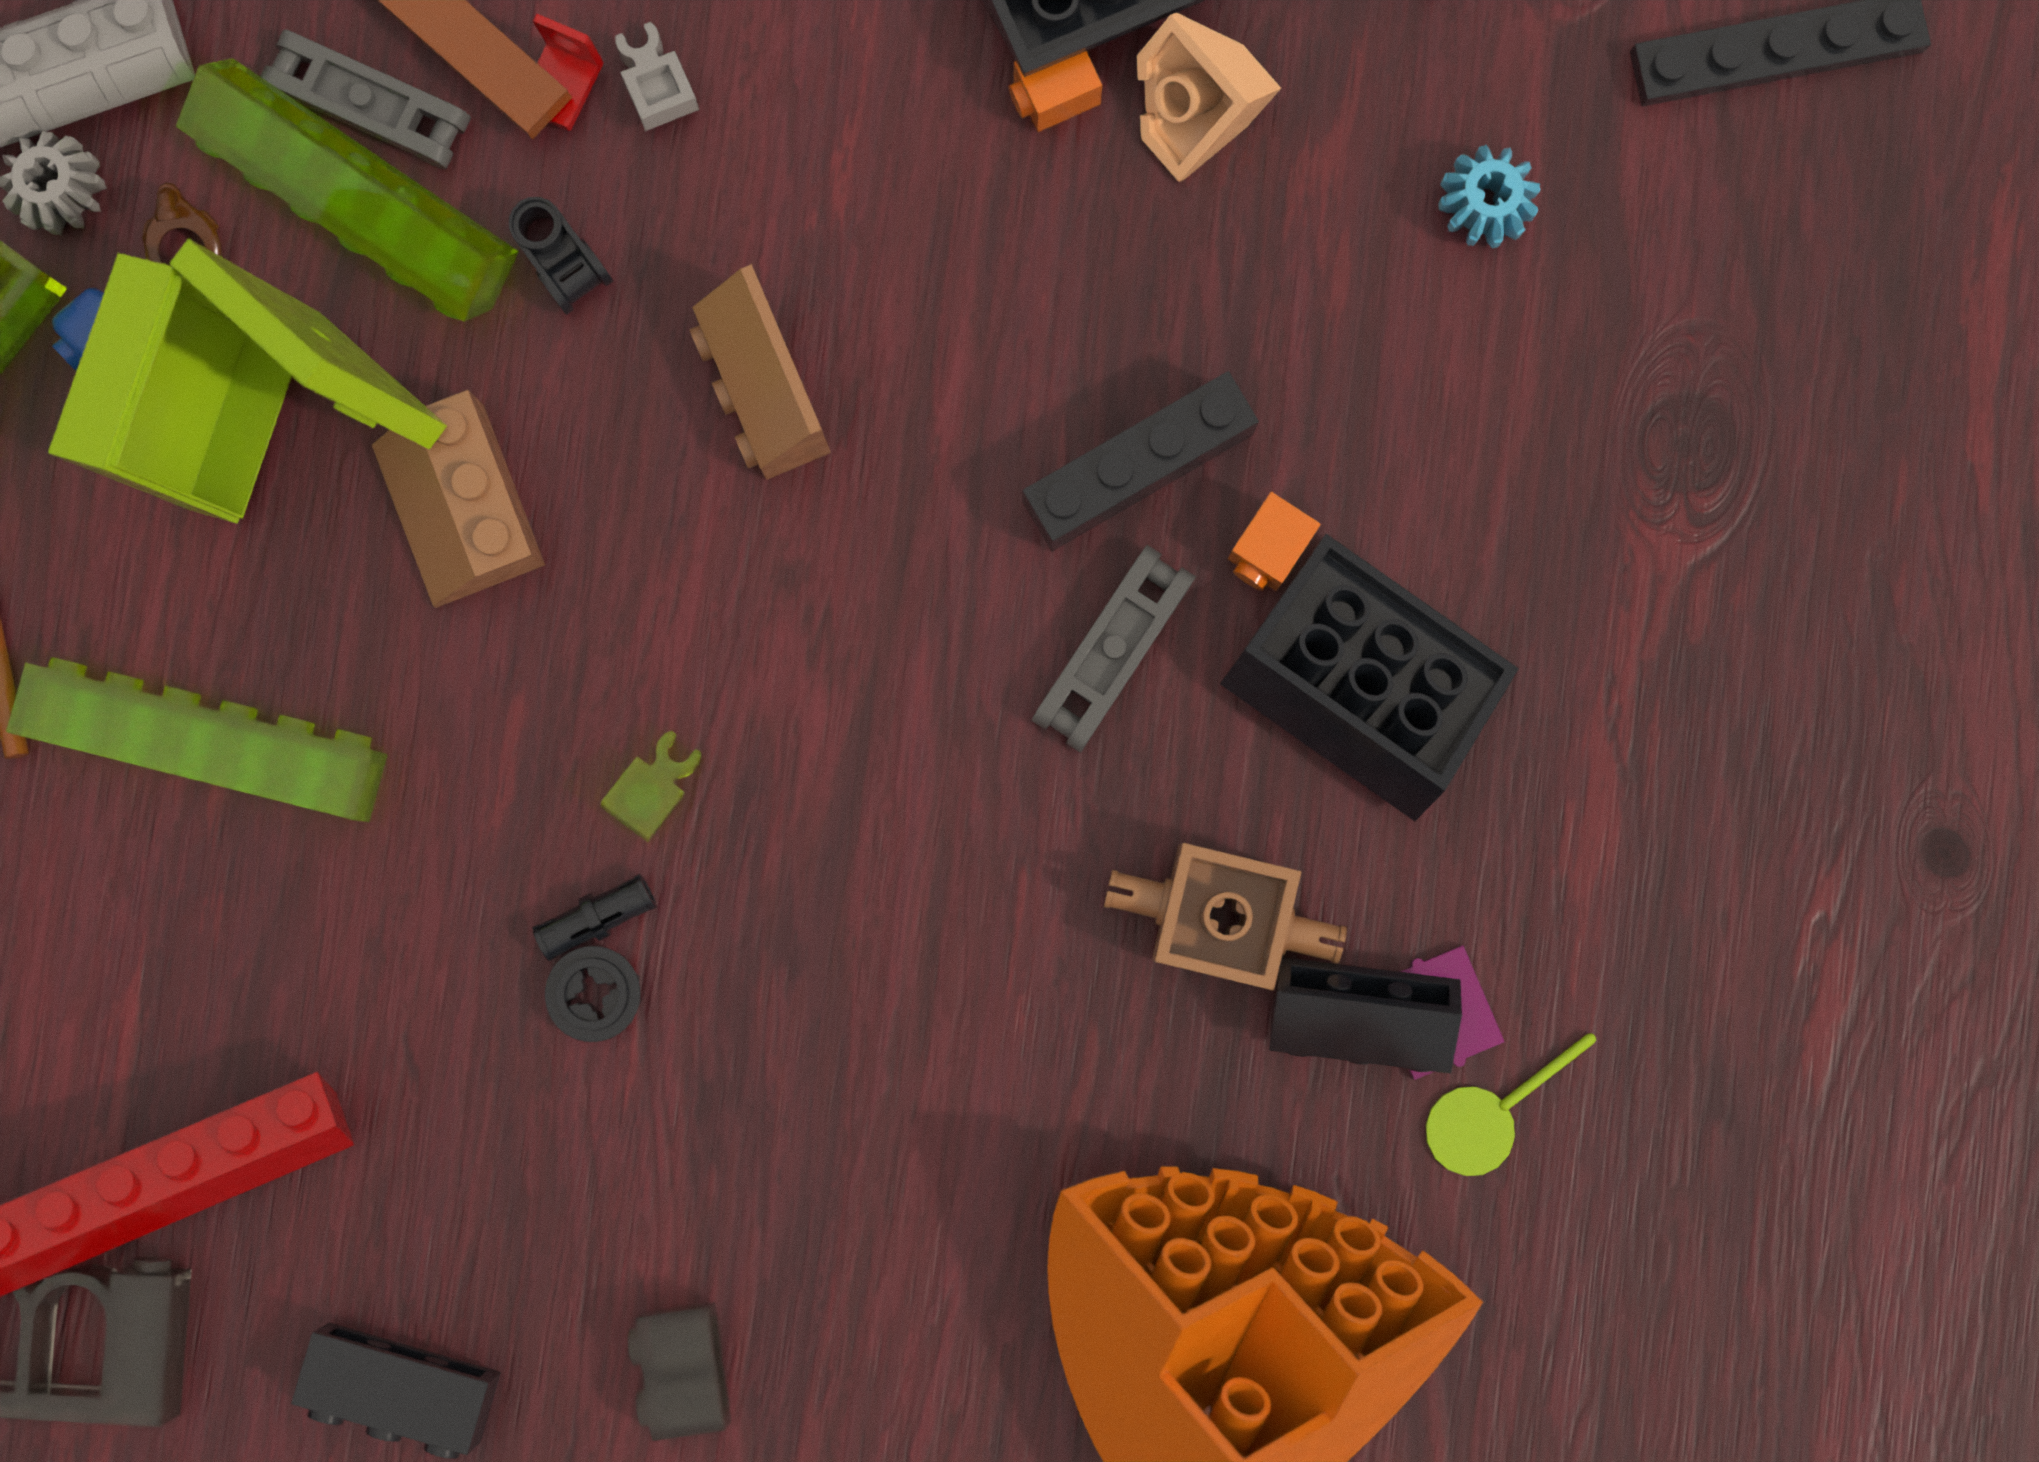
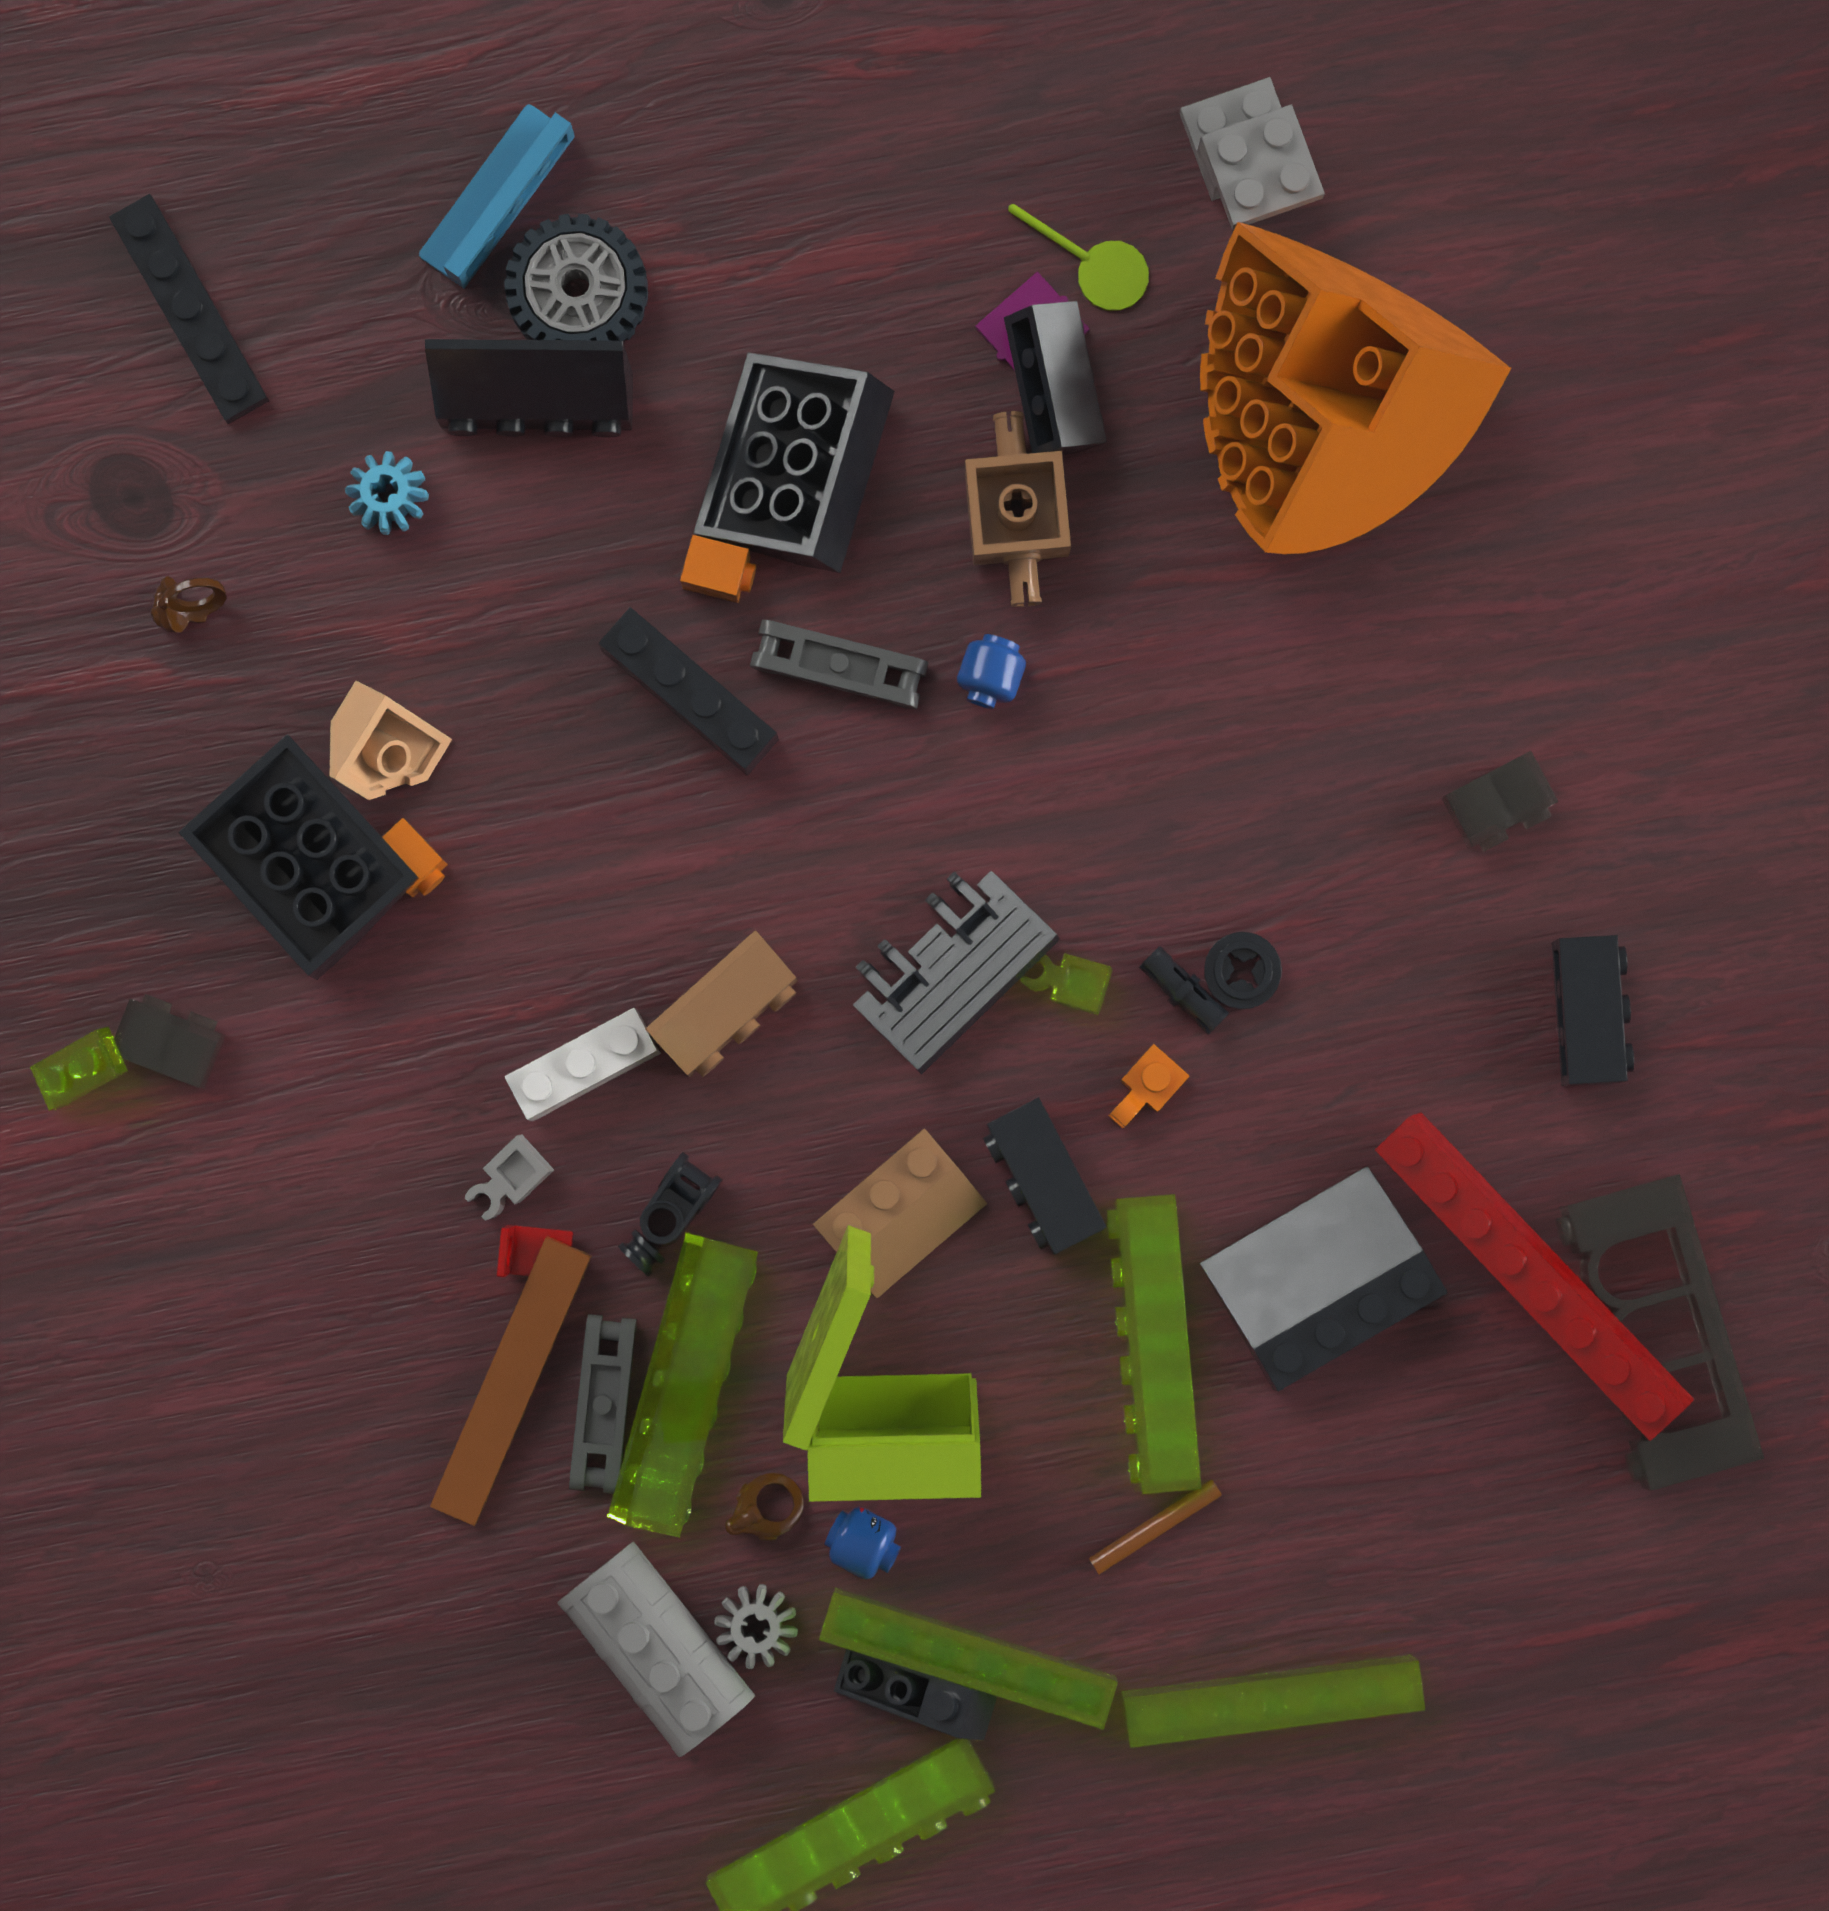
camera: 110 degrees left, 0 degrees up
(199, 960) = (1322, 1278): none -> slope
(434, 678) = (1043, 1177): none -> black brick
(503, 842) = (1150, 1083): none -> orange plate
(510, 190) = (641, 1253): none -> black bush
(706, 663) = (958, 974): none -> hinge
(750, 193) = (582, 1065): none -> white brick
(1043, 820) = (991, 671): none -> blue head
(1559, 392) = (530, 386): none -> black slope
(1563, 1350) = (1252, 153): none -> light grey bracket
(1696, 465) = (571, 251): none -> wheel
(1801, 441) = (497, 194): none -> dark azure panel

